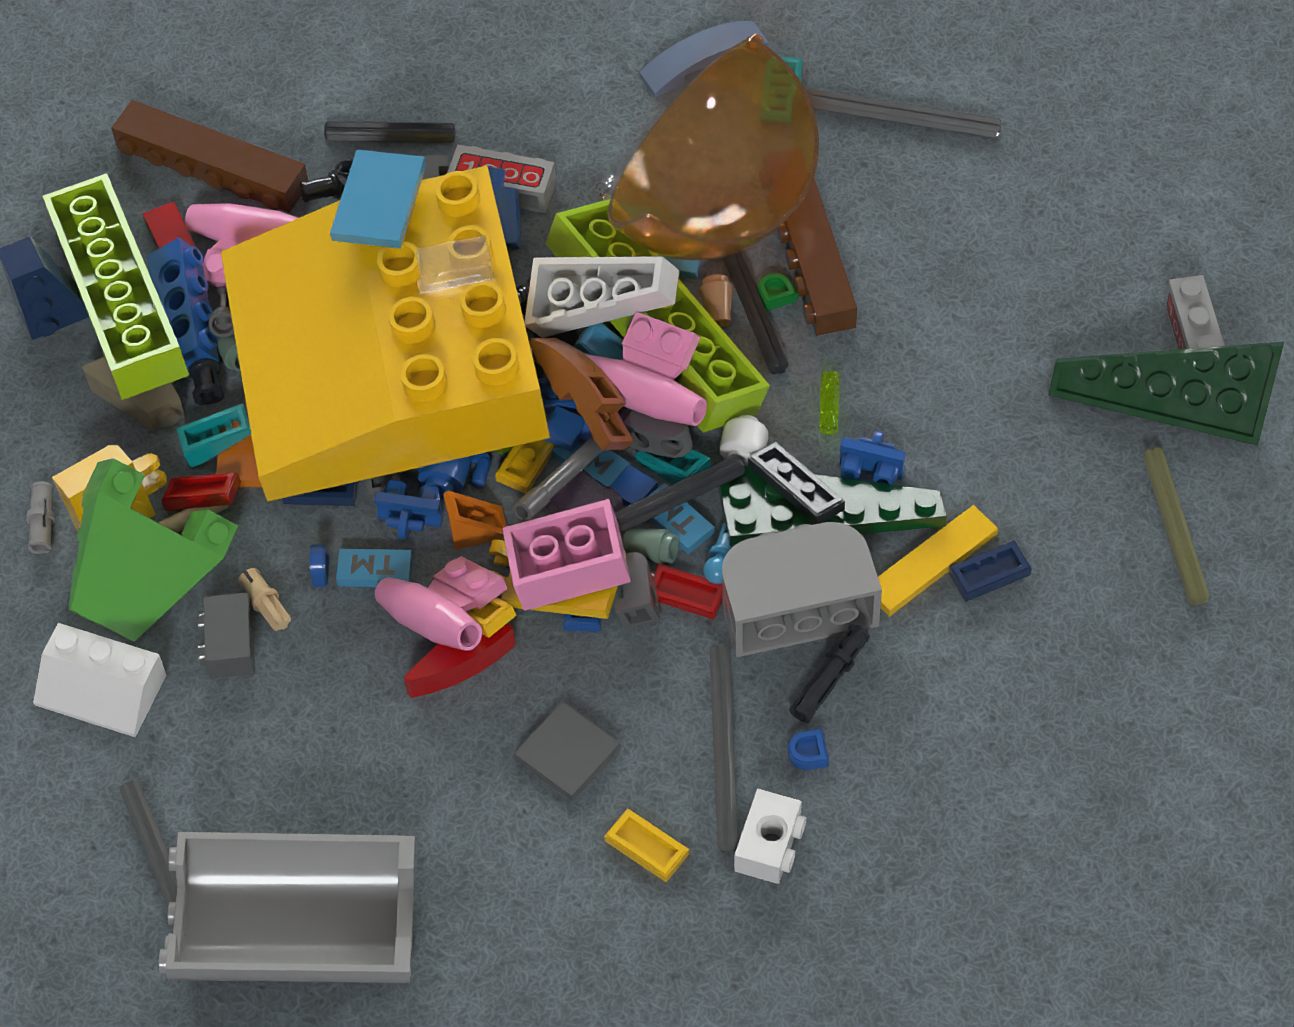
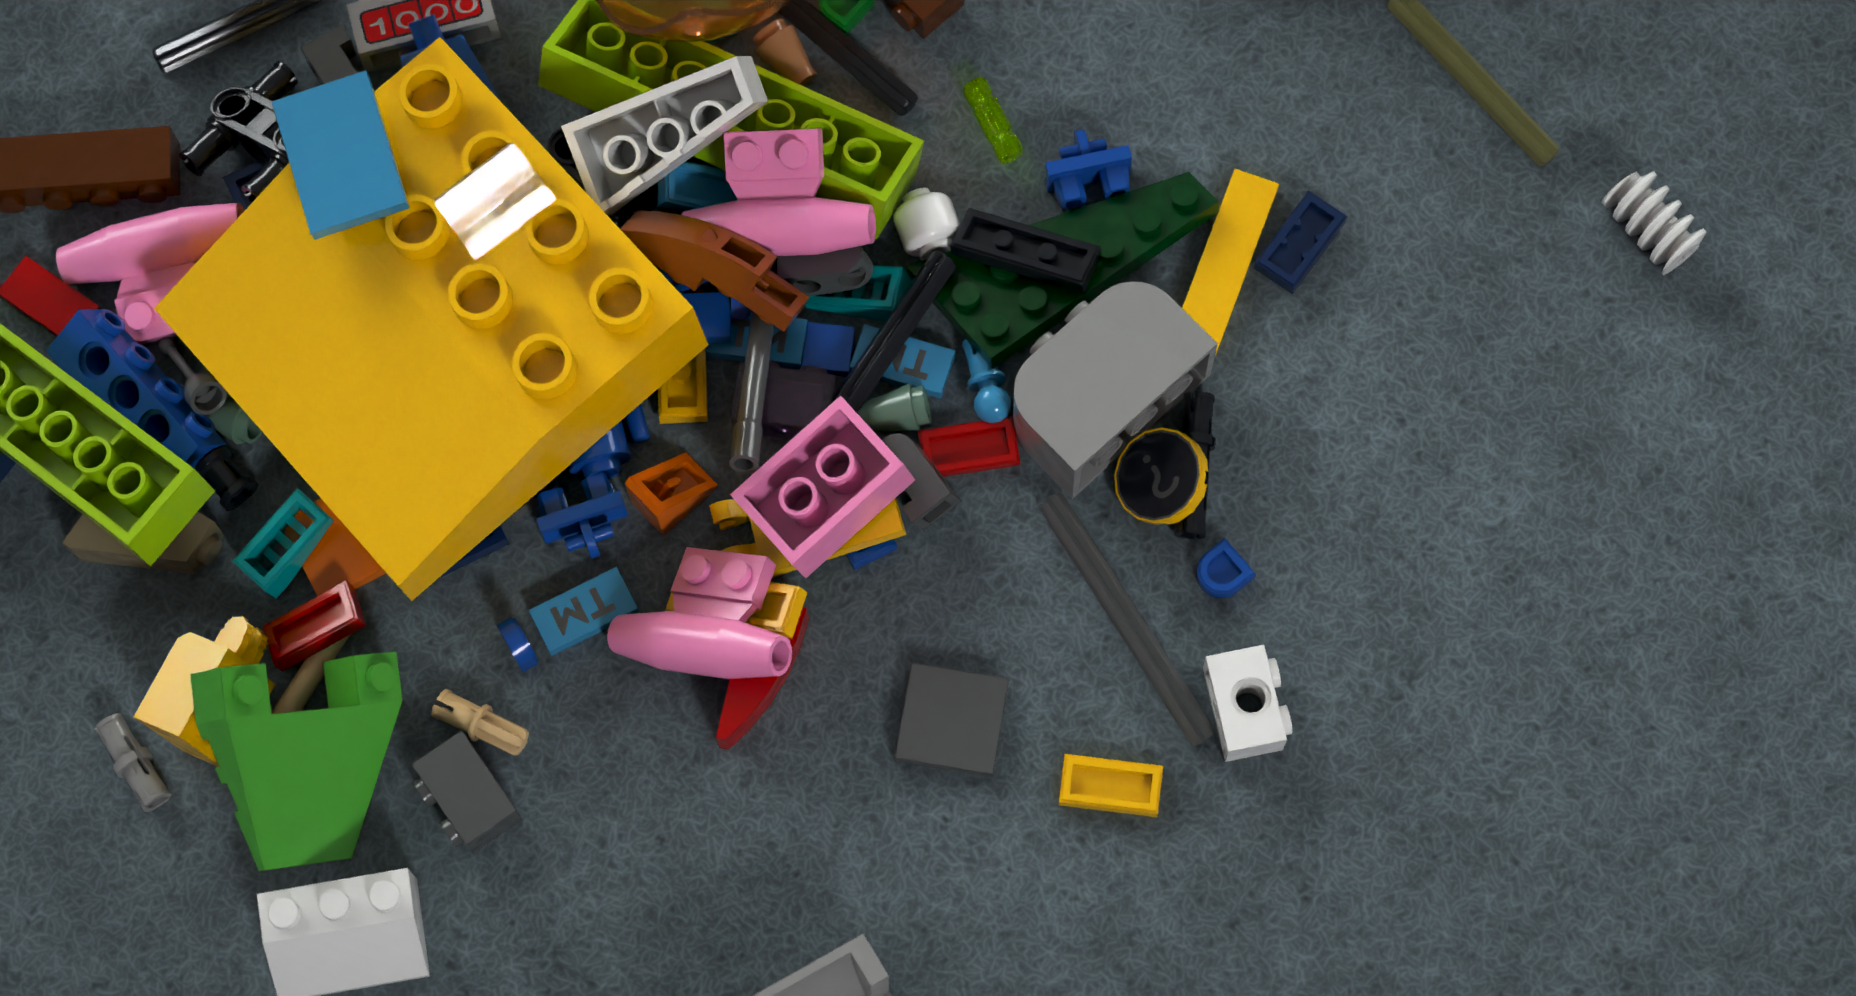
camera: 30 degrees left, 15 degrees up
(800, 666) = (1161, 476): none -> black tile
(1248, 670) = (1654, 220): none -> white piece

